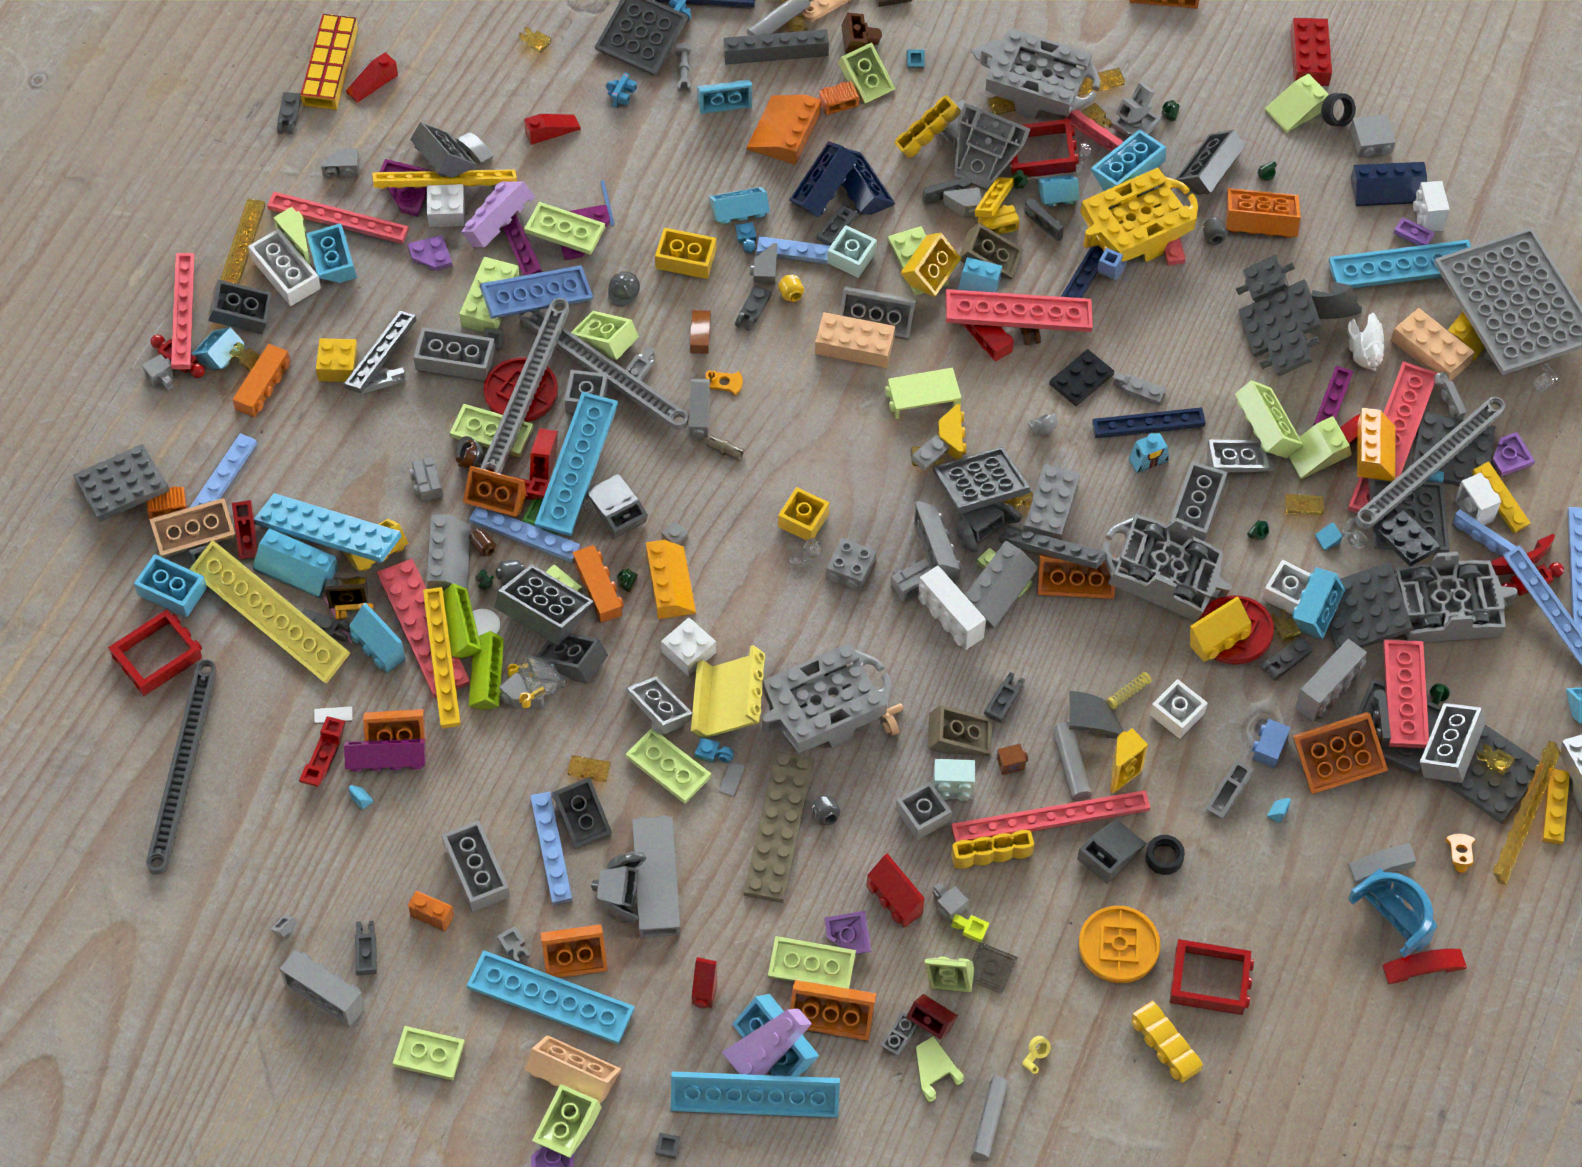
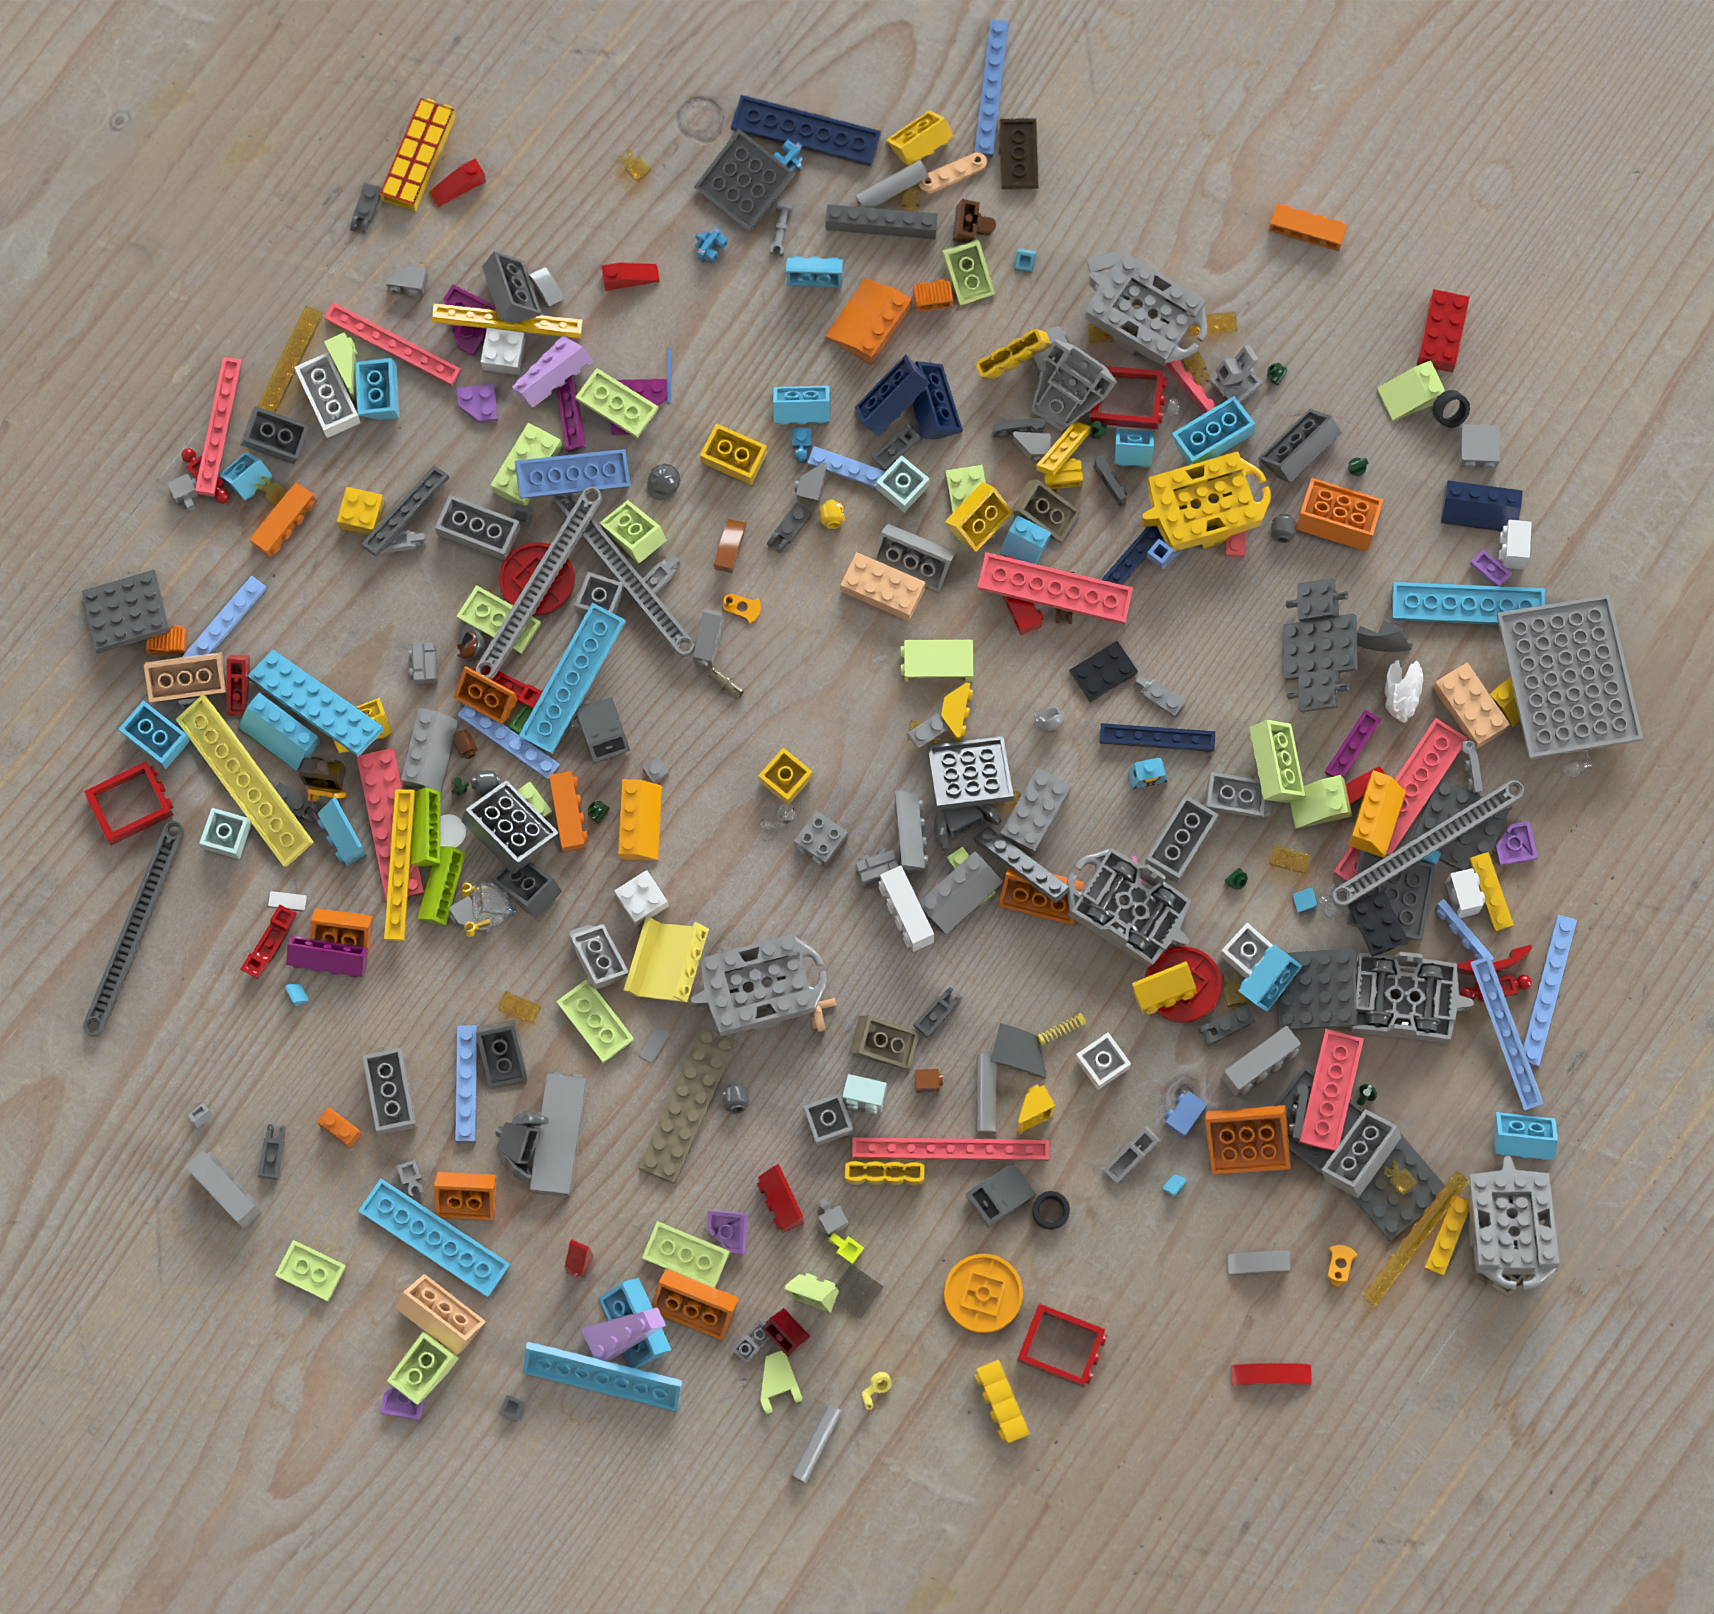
camera: 15 degrees right, 15 degrees up
(259, 661) = (225, 833): none -> light aqua brick
(543, 454) = (543, 659): red slope -> none
(709, 749) = (638, 1011): dark azure plate -> none
(1408, 923) = (1271, 1329): dark azure piece -> none

